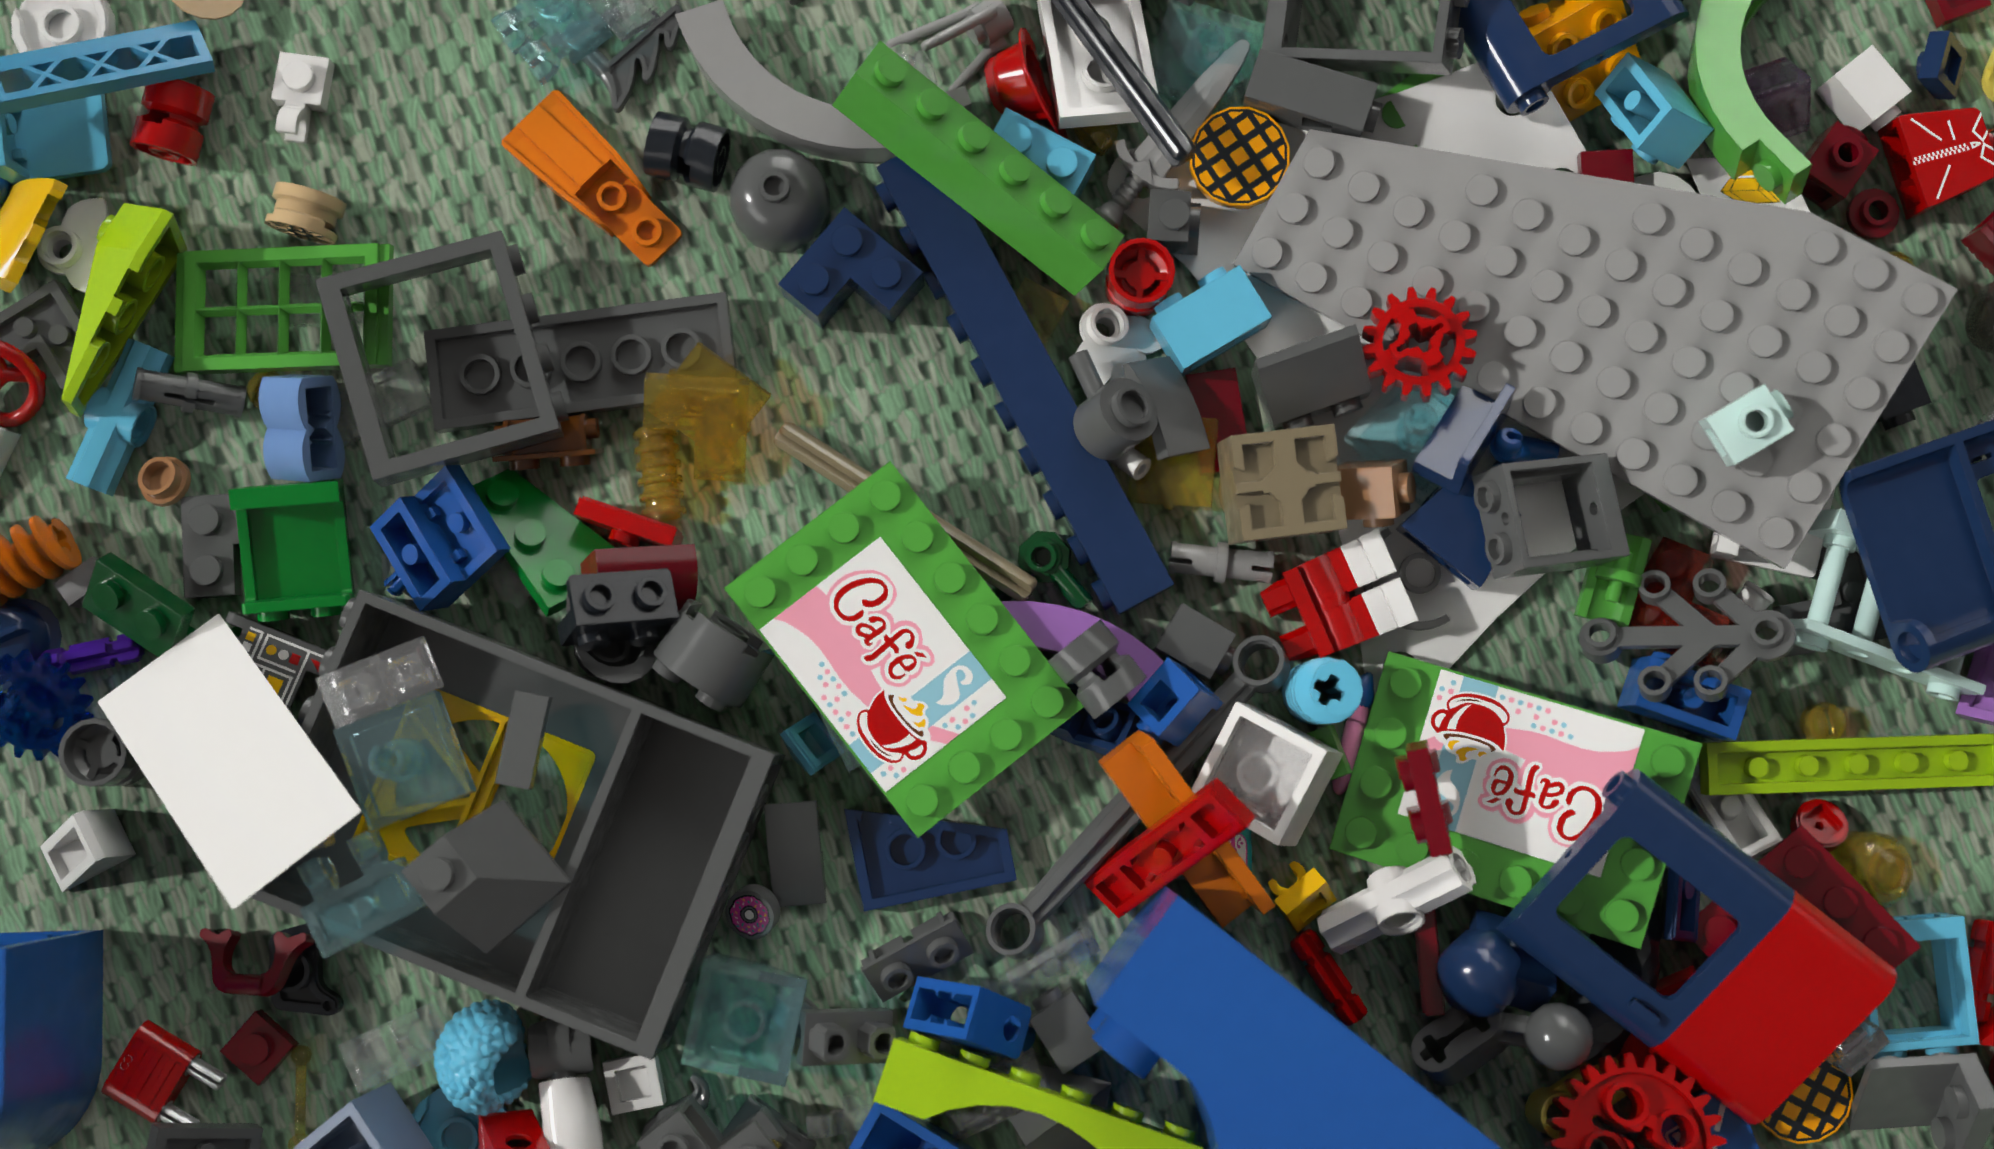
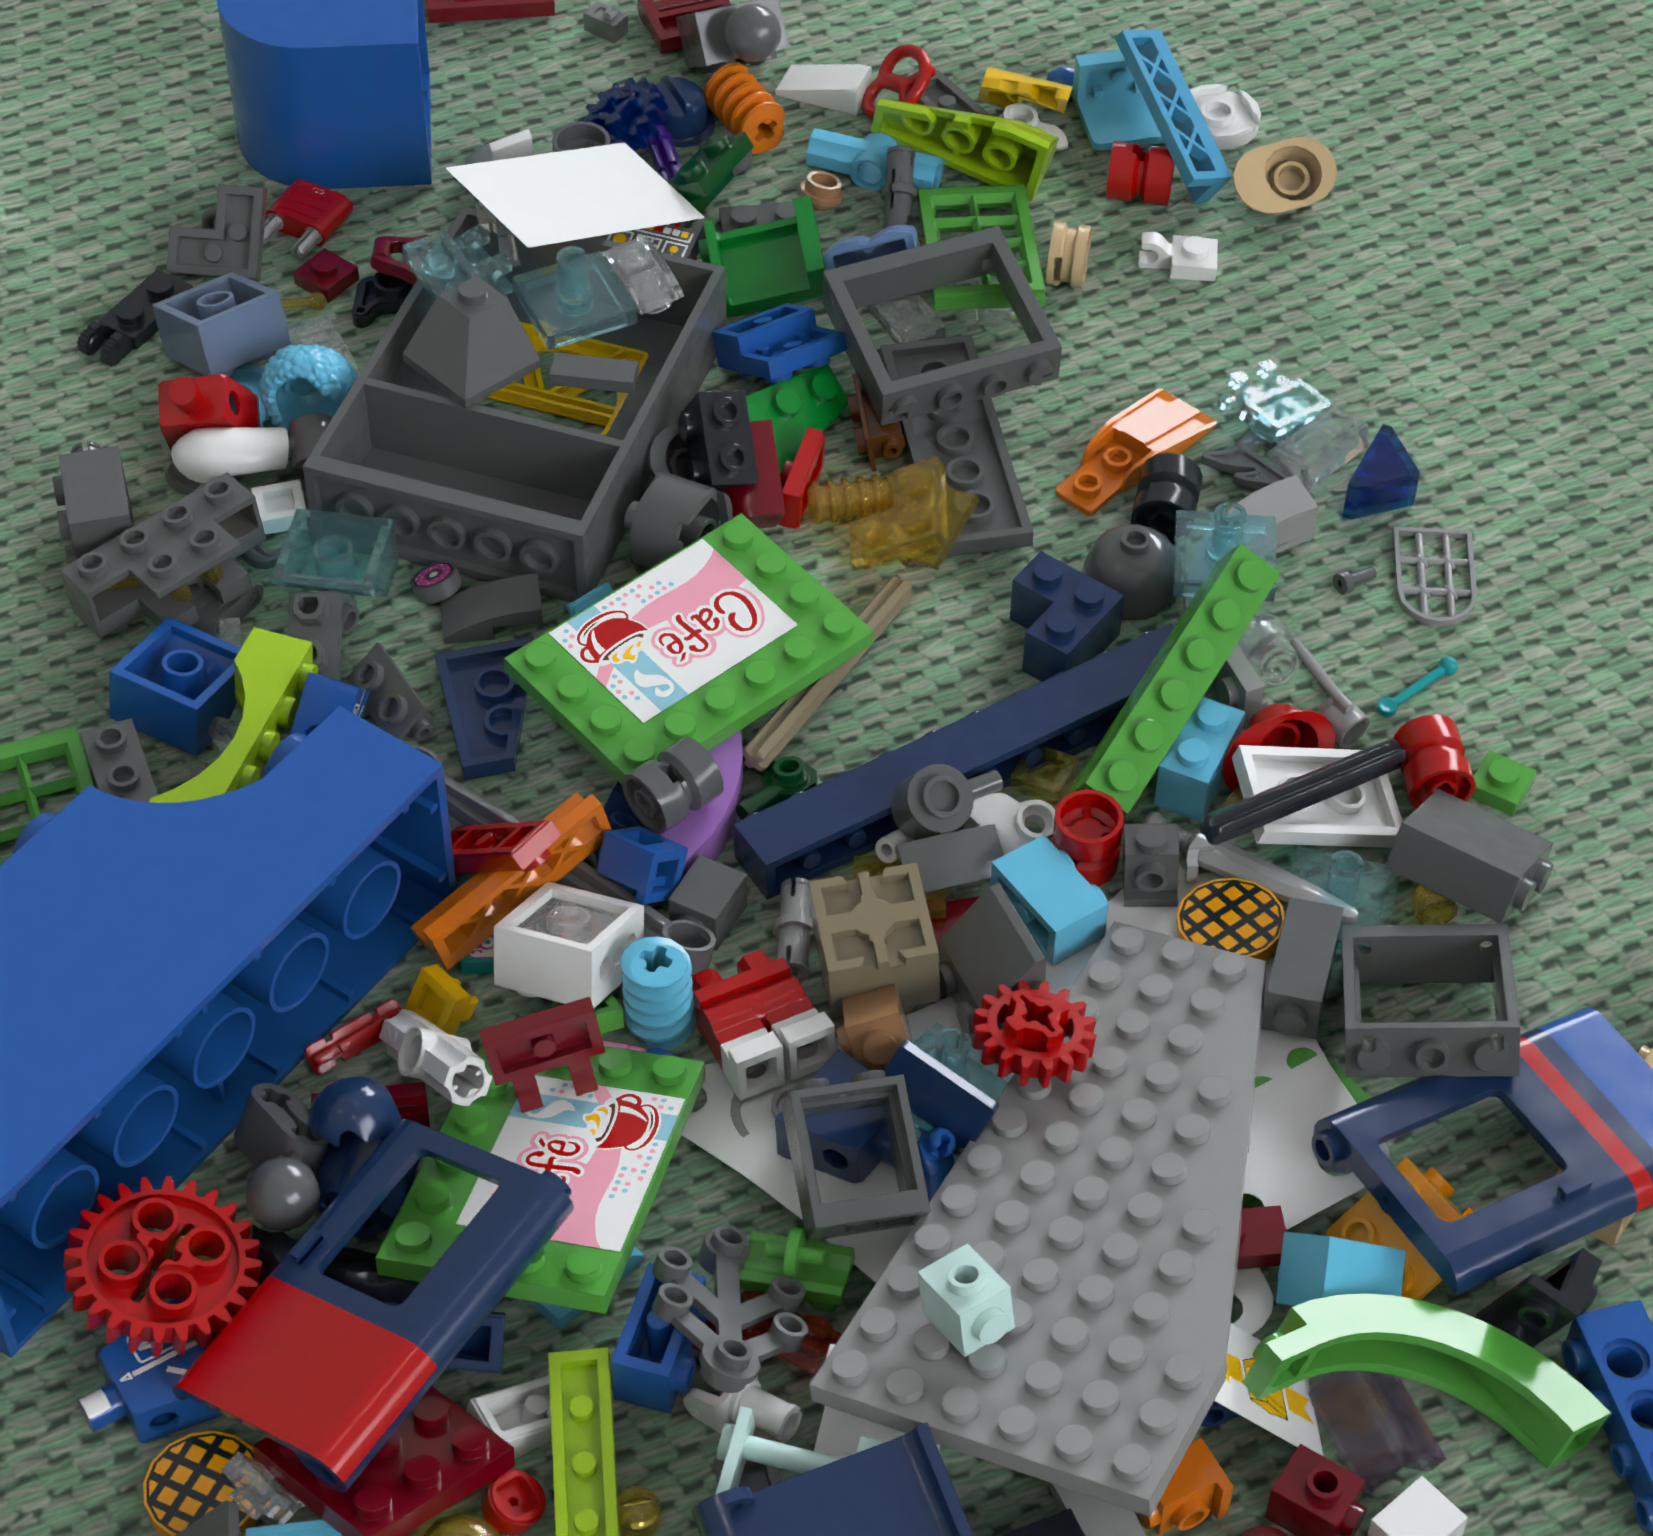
camera: 85 degrees right, 35 degrees down
(791, 100) = (1208, 536): none -> clear light blue tile

